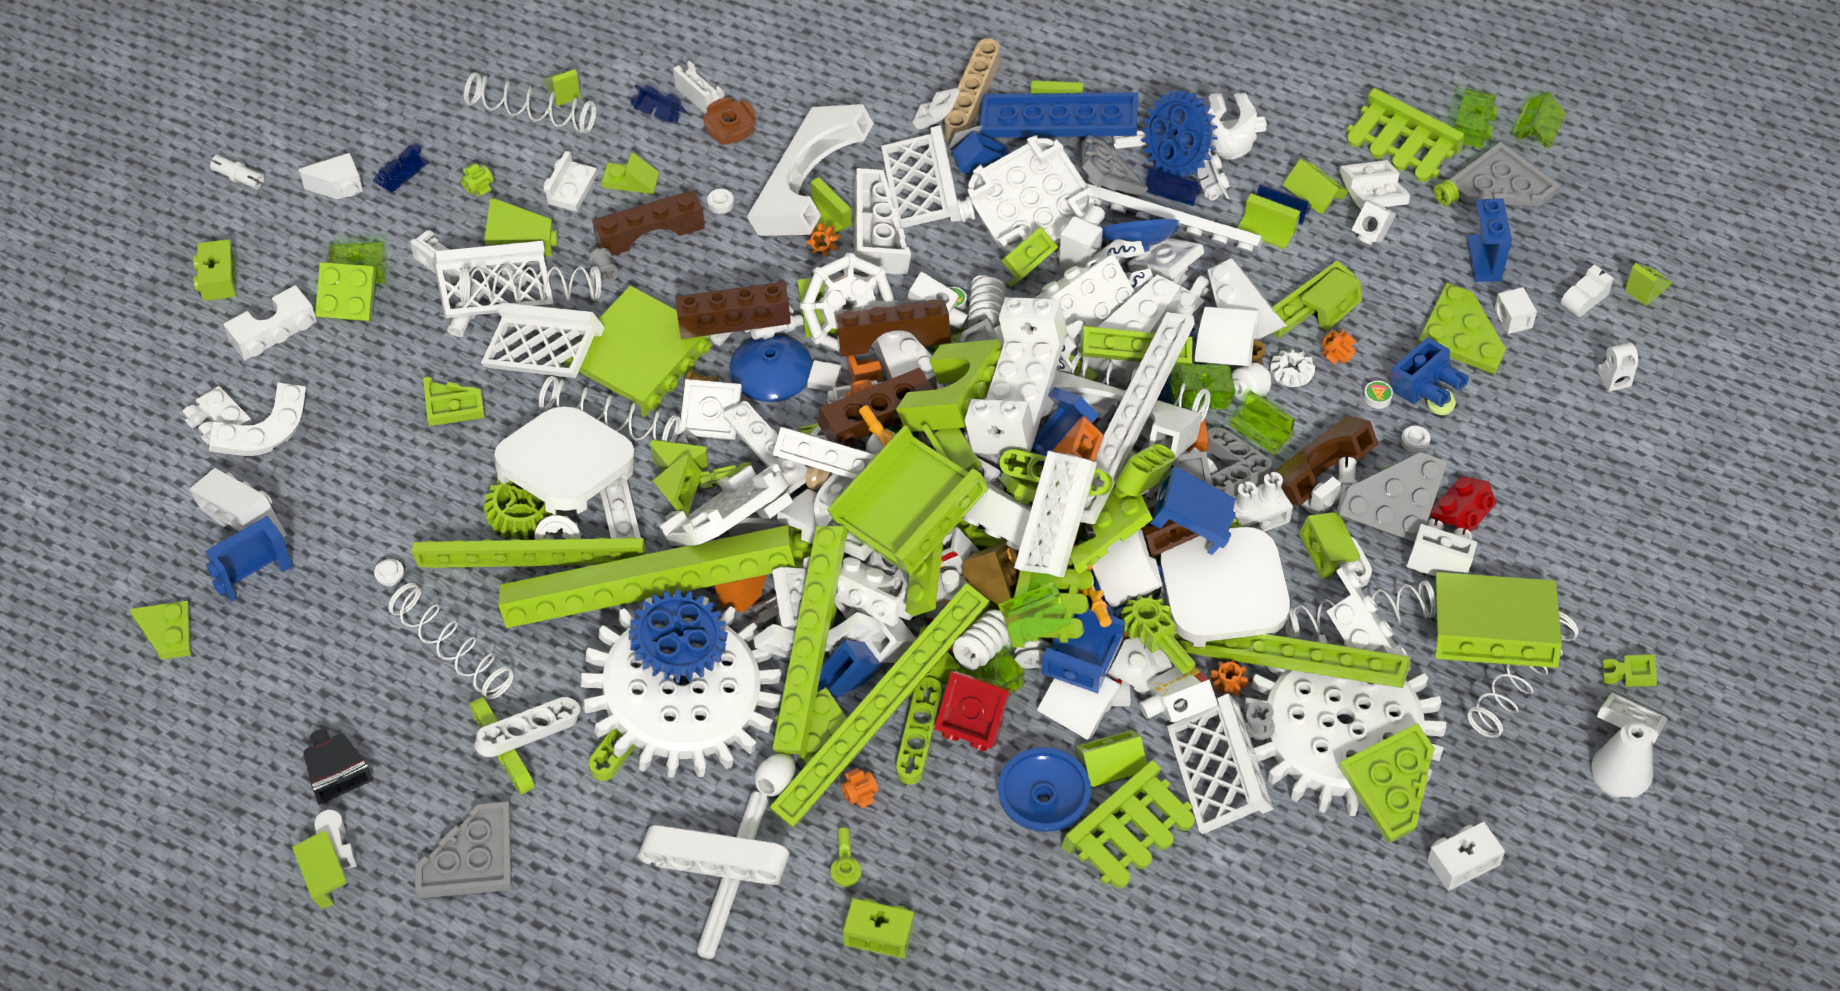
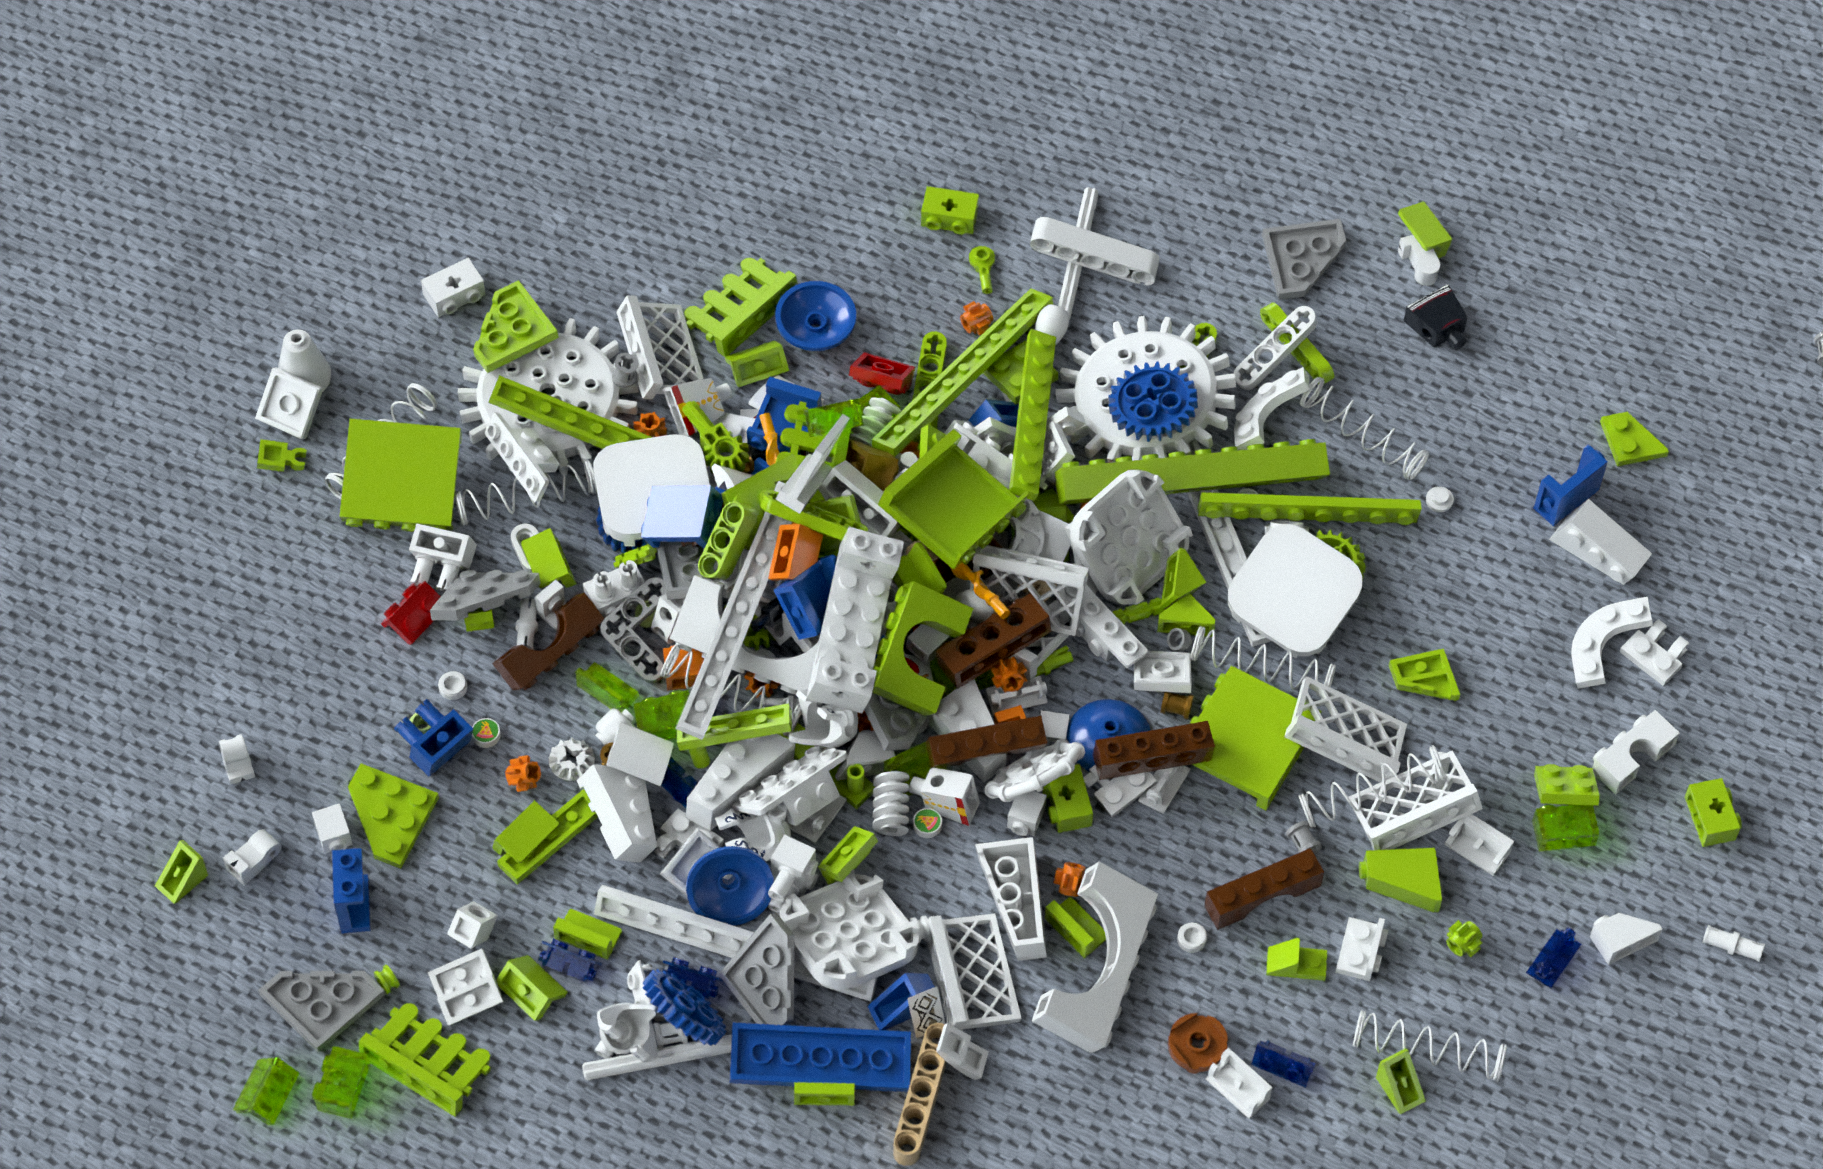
camera: 175 degrees right, 5 degrees up
(562, 669) = (1251, 419): none -> white plate

